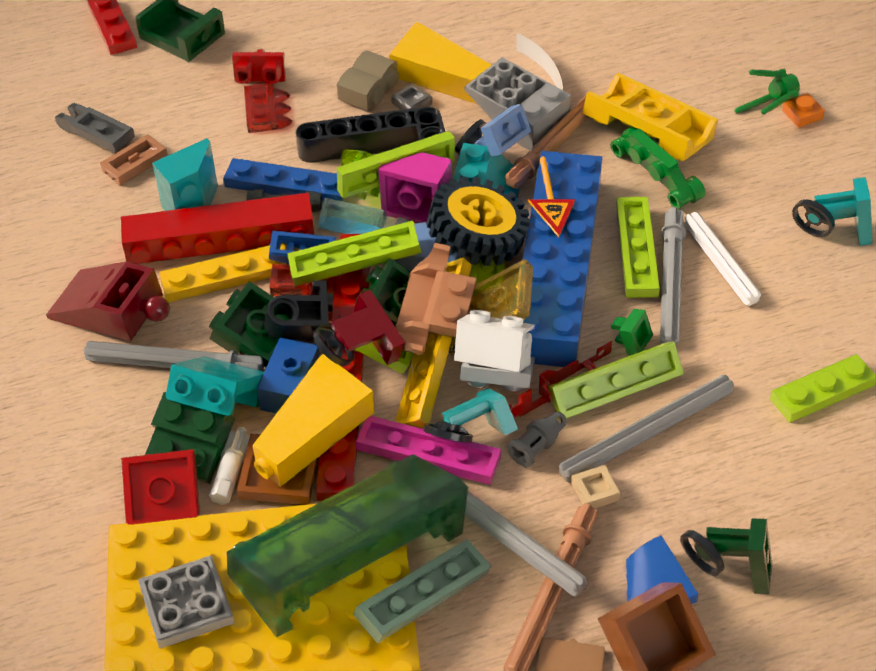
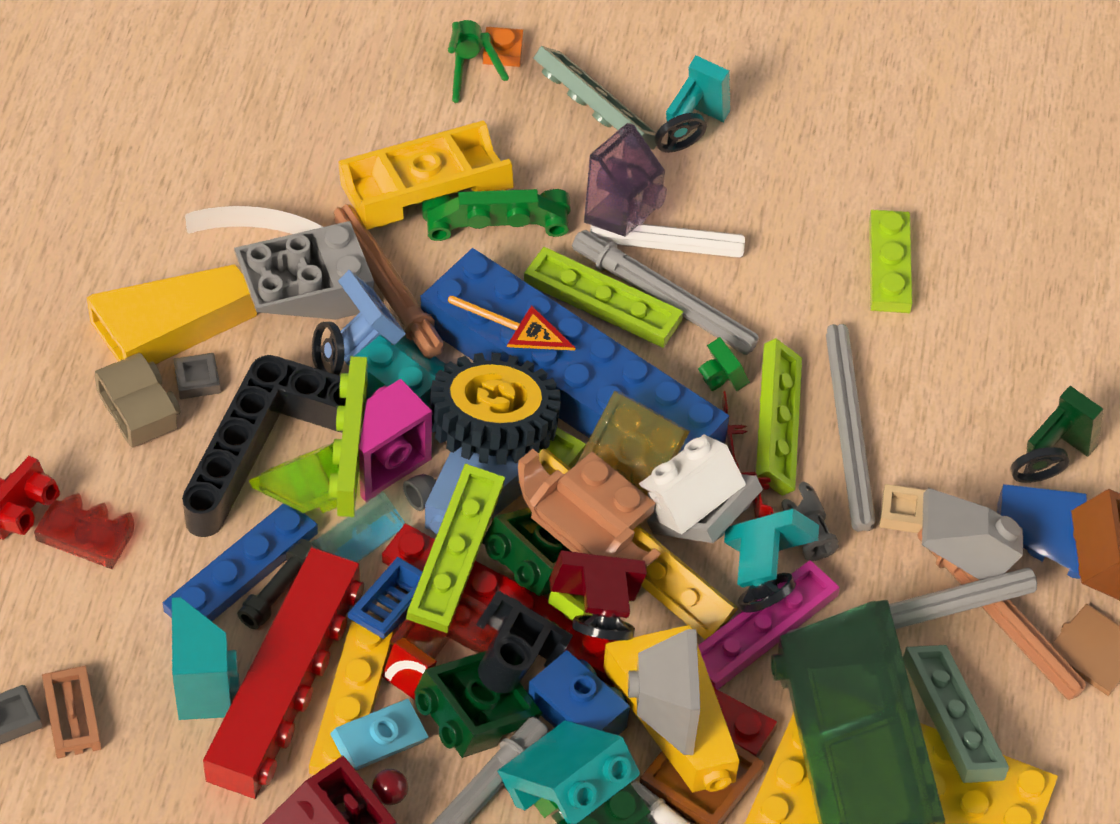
camera: 65 degrees left, 5 degrees up
(196, 290) = (379, 734): none -> medium azure plate
(263, 275) = (406, 666): none -> red tile
(291, 395) = (669, 689): none -> light grey slope
(587, 526) = (970, 535): none -> light grey slope
(729, 200) = (623, 183): none -> slope
(803, 166) = (587, 91): none -> sand green plate

